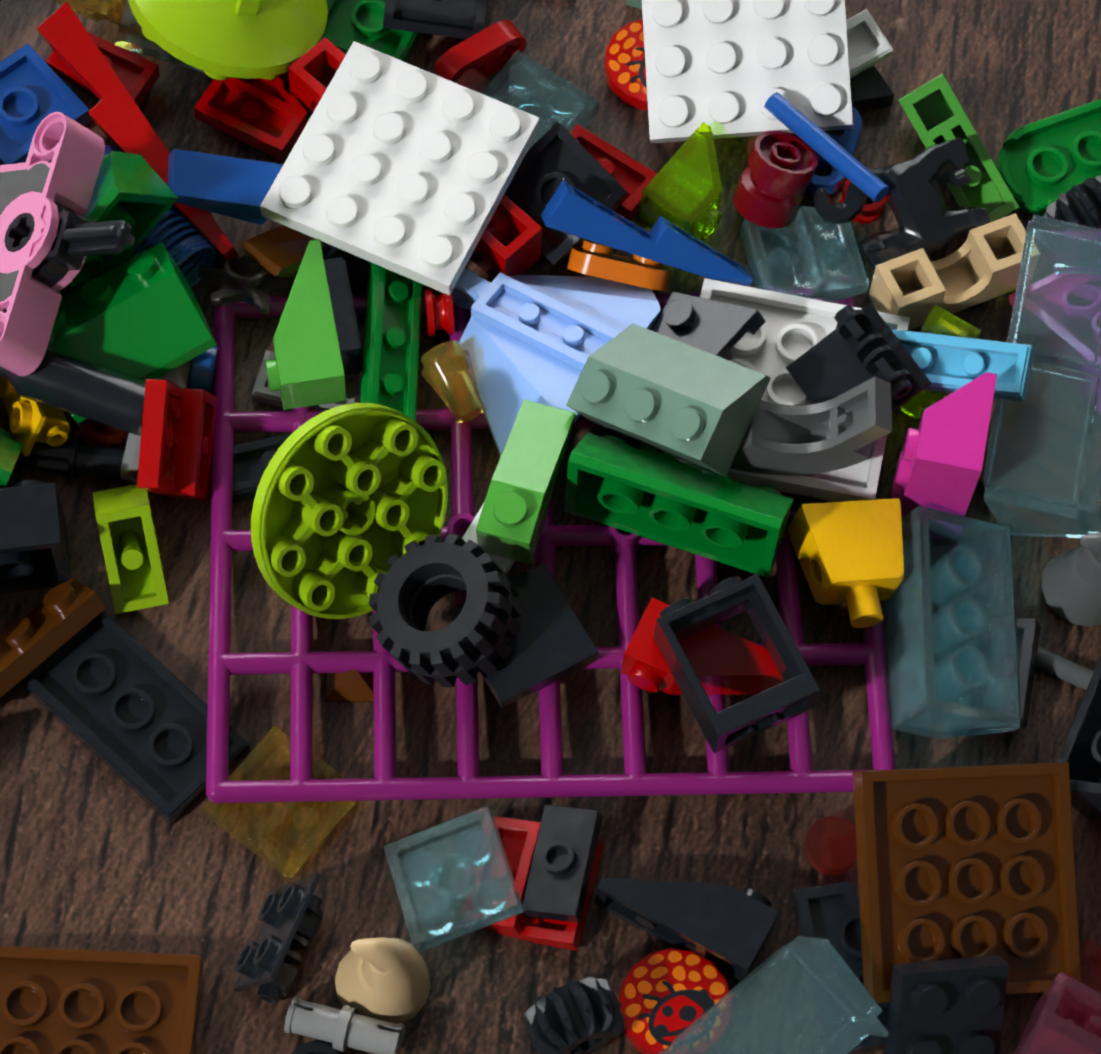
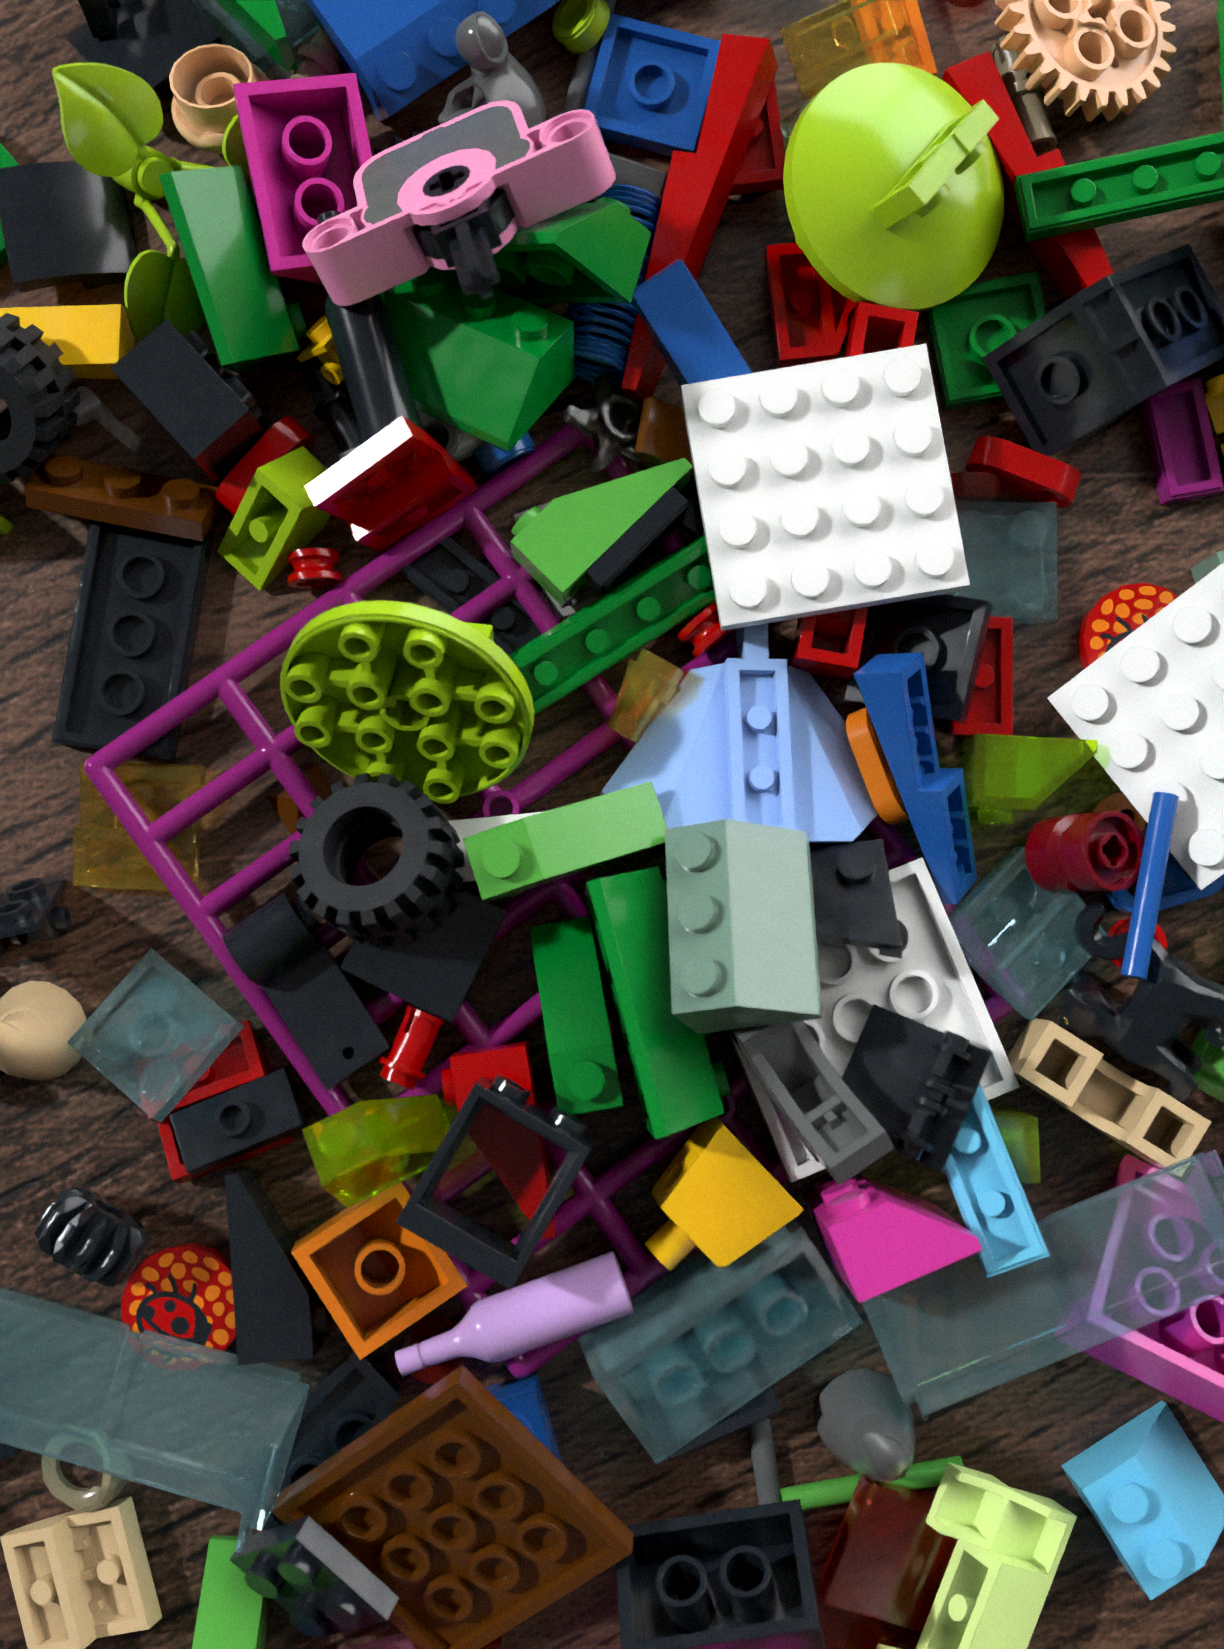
camera: 55 degrees right, 20 degrees up
(84, 534) = (278, 441): none -> red beam
(186, 548) = (313, 568): none -> red bush
(498, 737) = (303, 980): none -> black door
(597, 691) = (411, 1048): none -> red pin
(651, 559) = (575, 1016): none -> green slope
(652, 755) = (376, 1144): none -> clear neon green slope
(743, 825) = (375, 1271): none -> orange slope
(851, 729) = (529, 1316): none -> lavender piece

